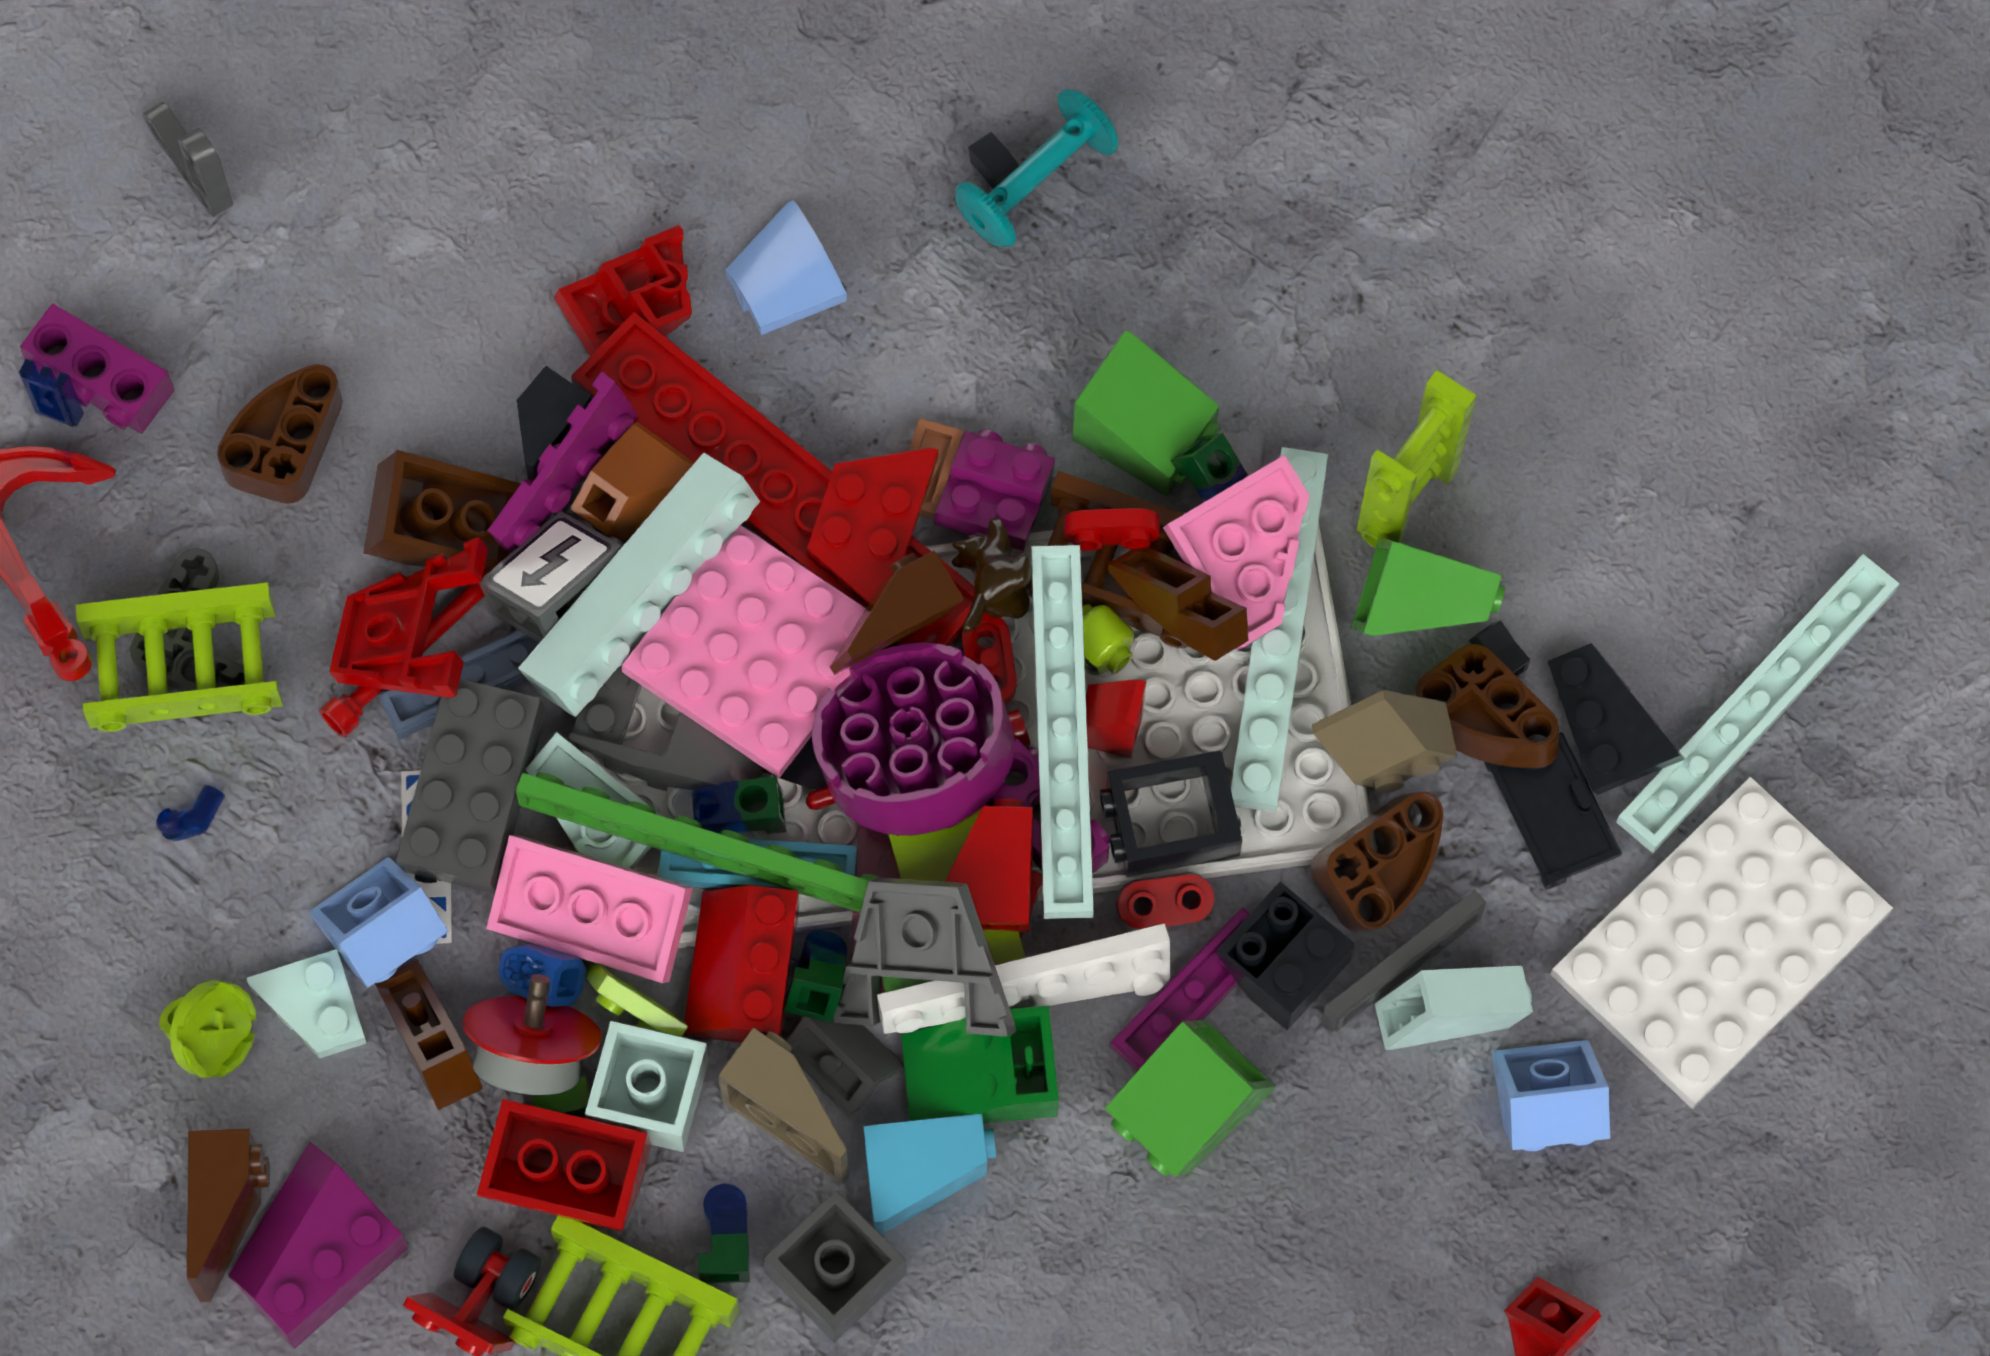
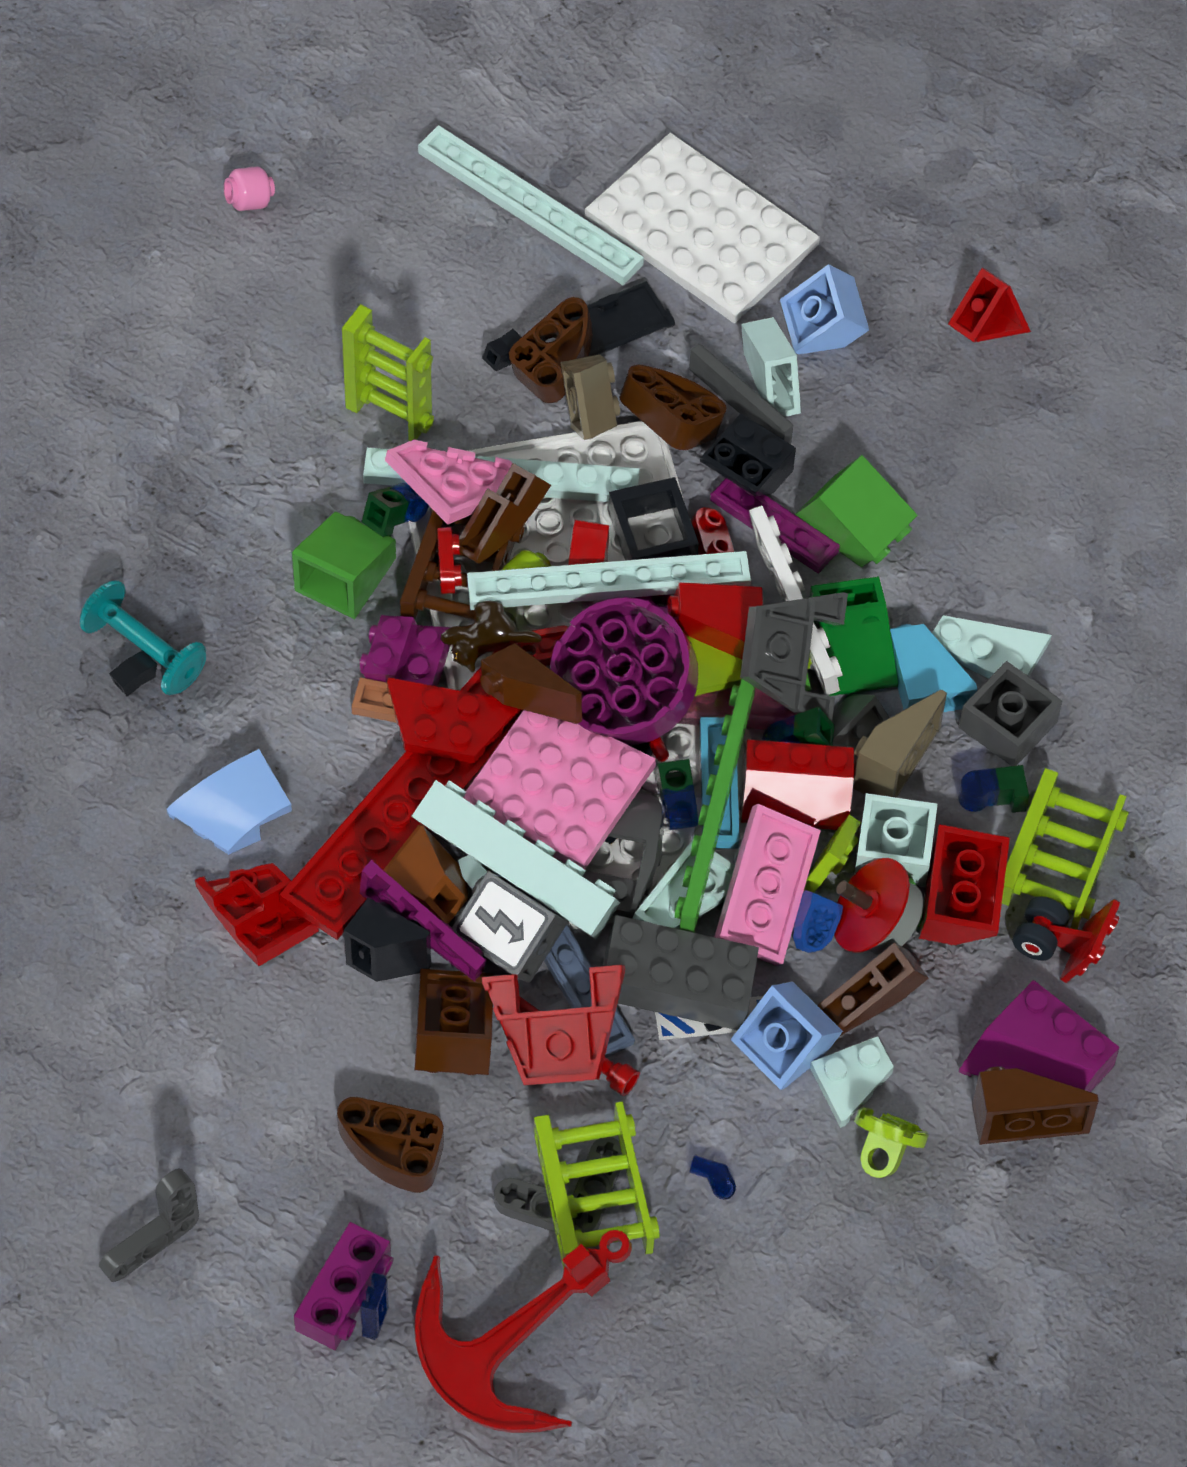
camera: 95 degrees left, 10 degrees down
(960, 1265) = (988, 646): none -> light aqua wing
(1423, 591) = (476, 384): bright green slope -> none
(1607, 721) = (543, 288): black wing -> none
(1786, 329) = (248, 188): none -> bright pink head

